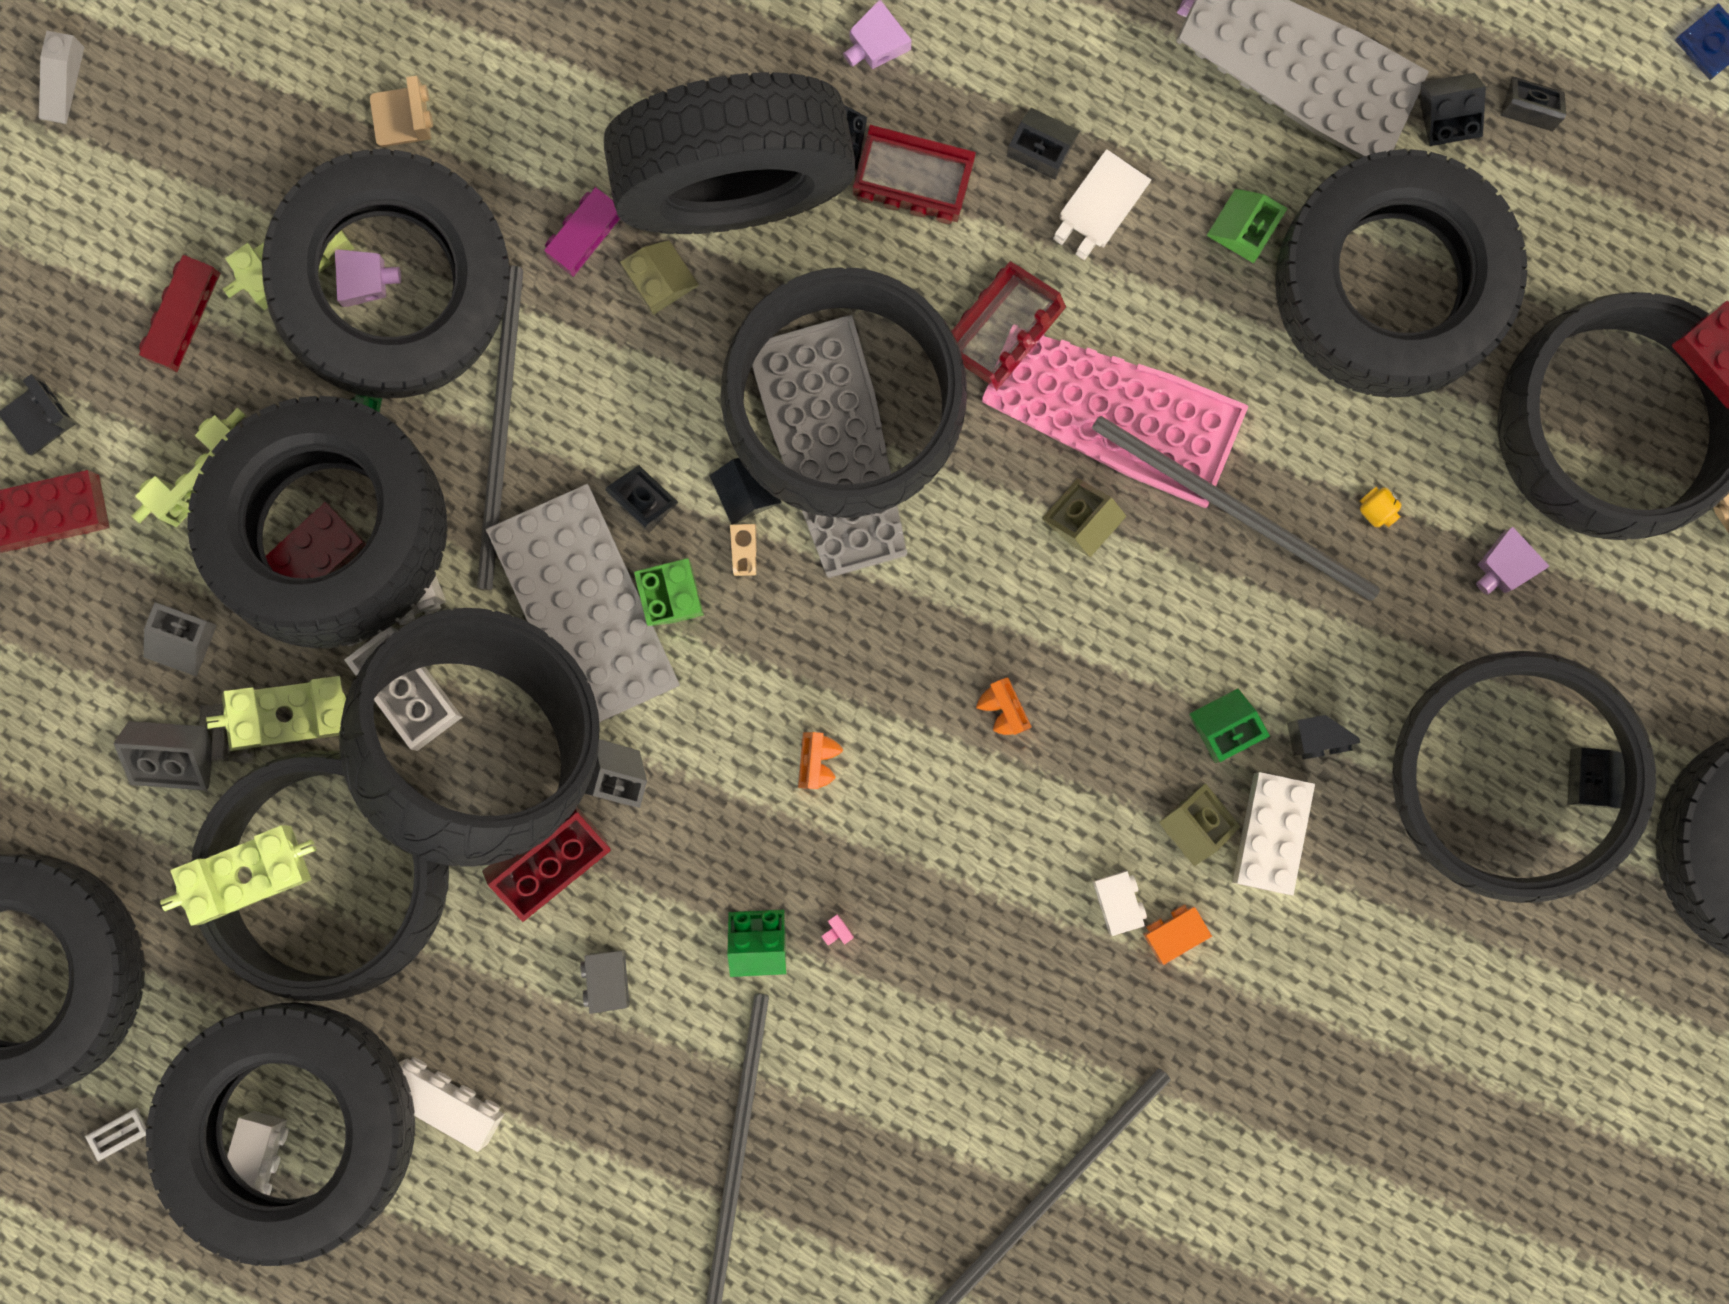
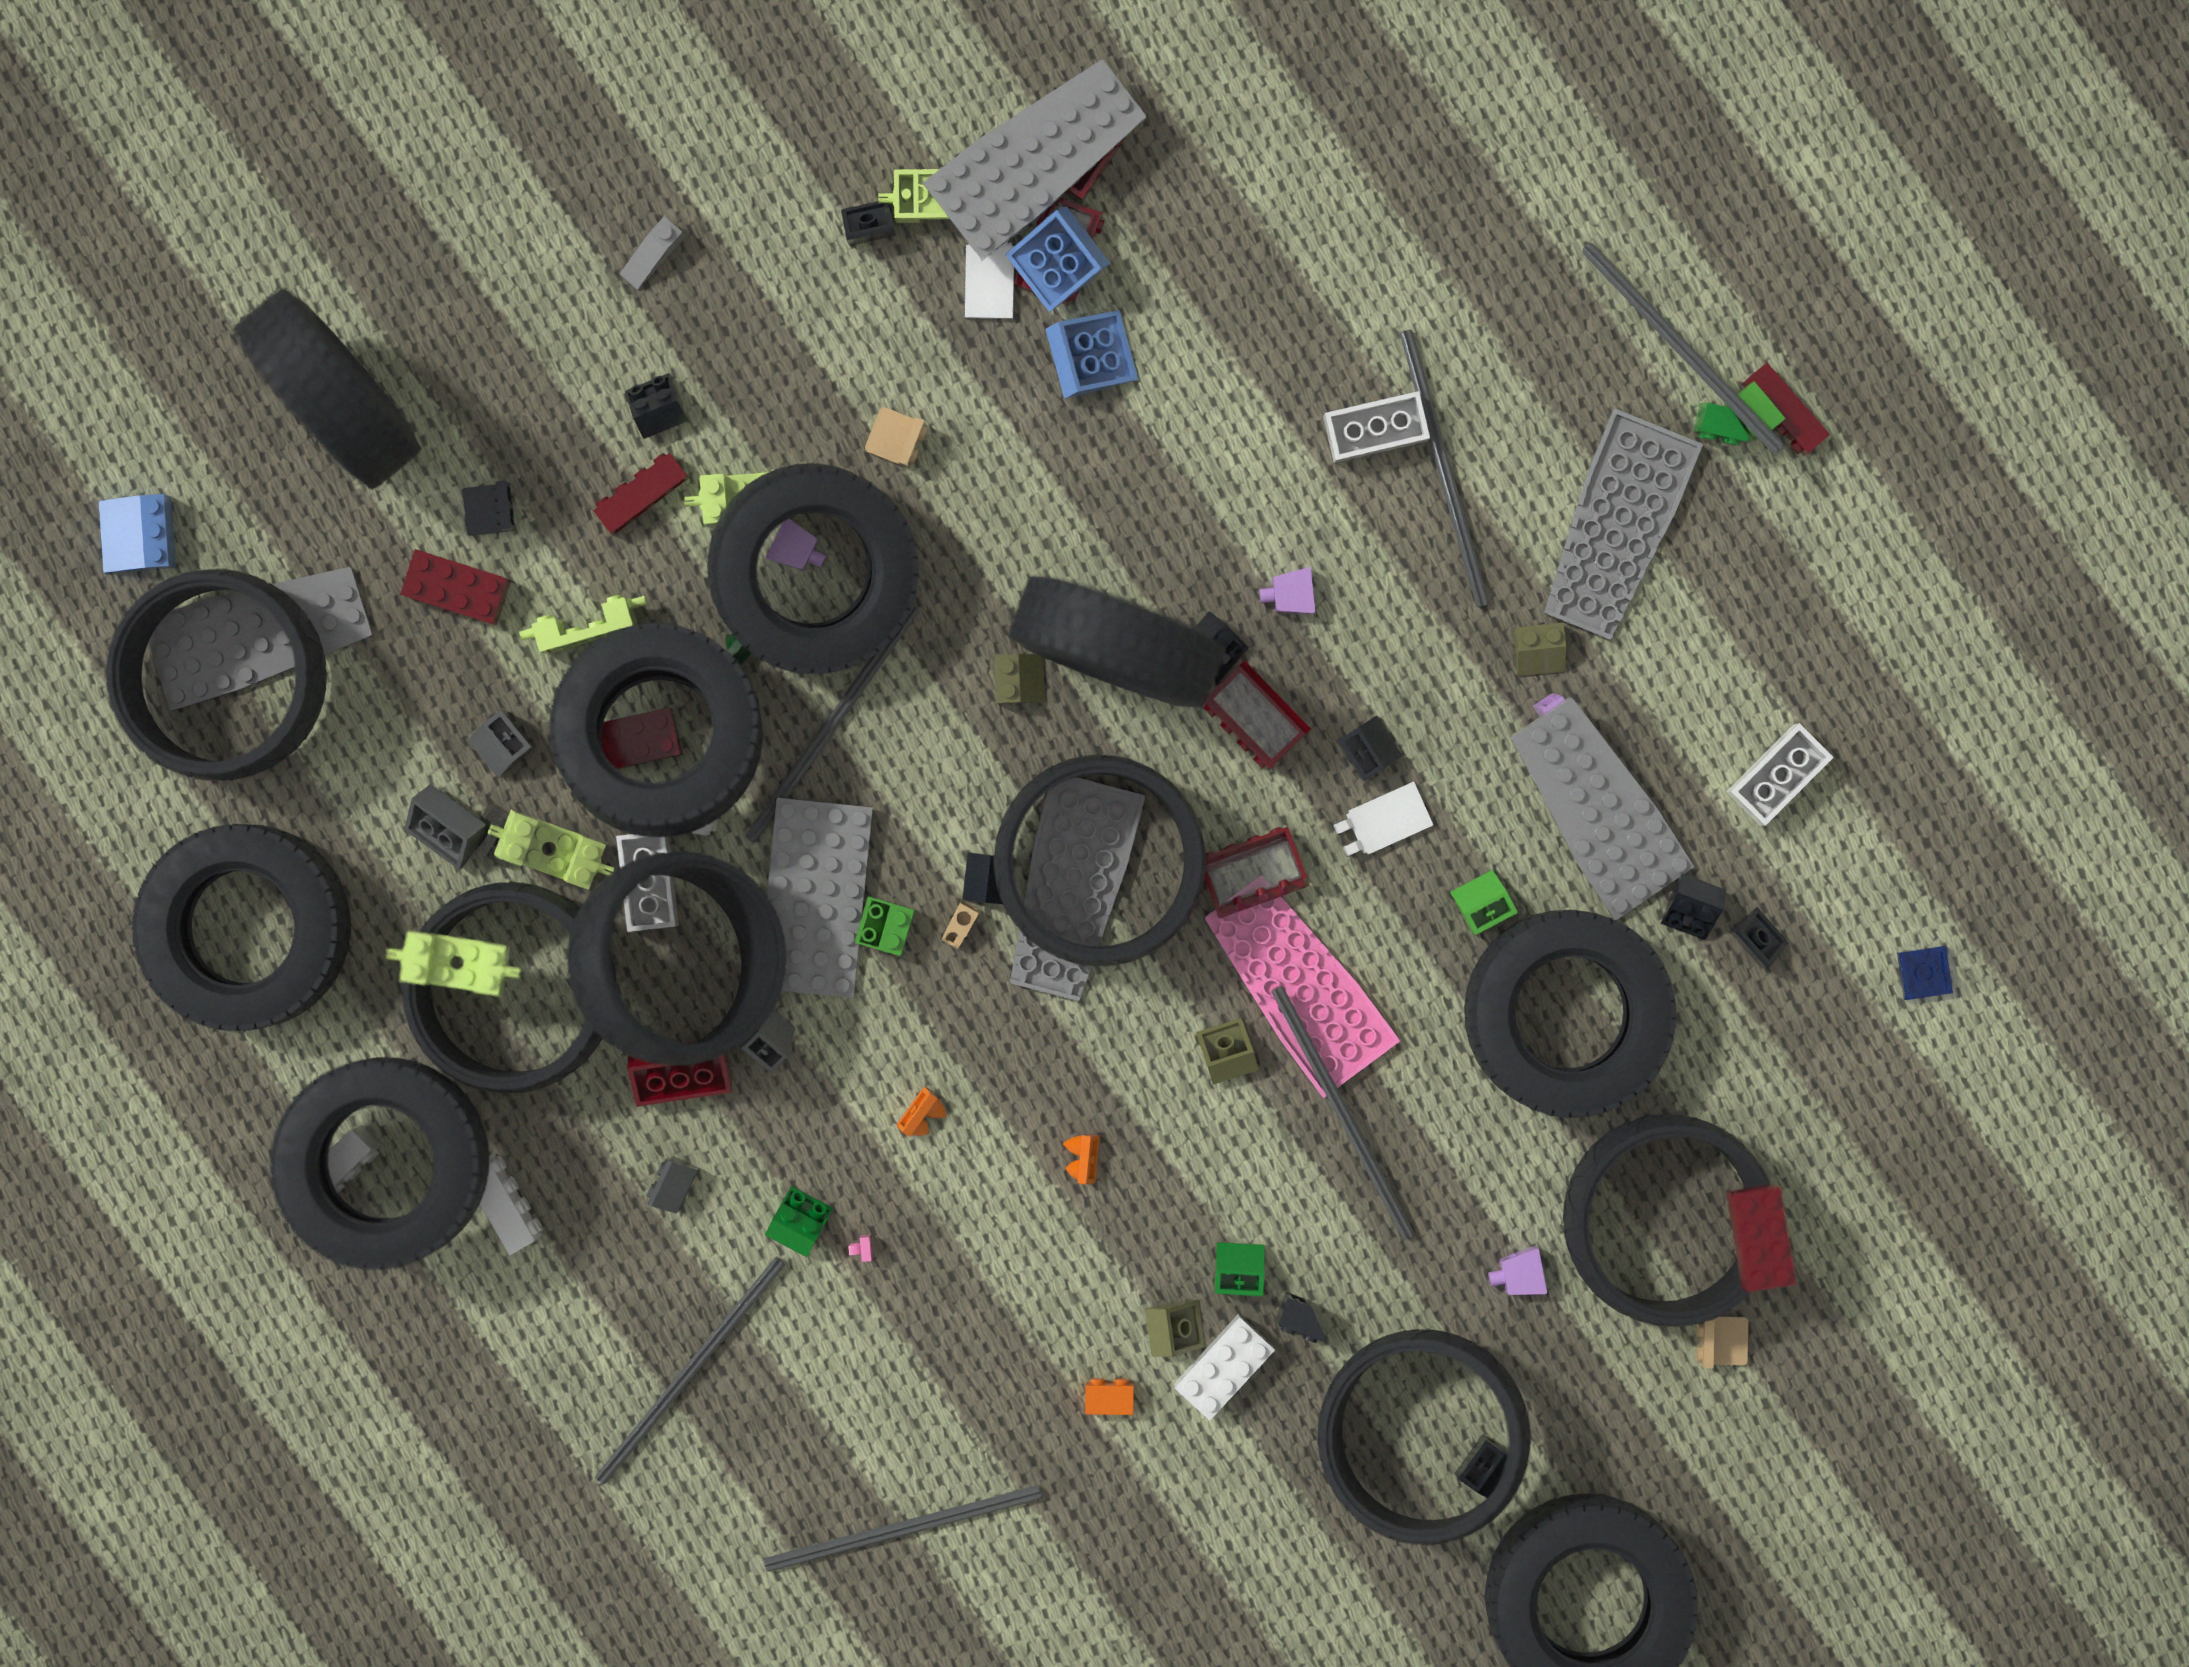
camera: 25 degrees right, 5 degrees up
(139, 1122) = (273, 1083): white tile -> none
(146, 220) = (655, 406): none -> black slope
(582, 232) = (980, 610): magenta brick -> none
(642, 497) = (907, 841): black slope -> none
(1119, 903) = (1080, 1350): white brick -> none
(1380, 507) = (1452, 1174): yellow head -> none

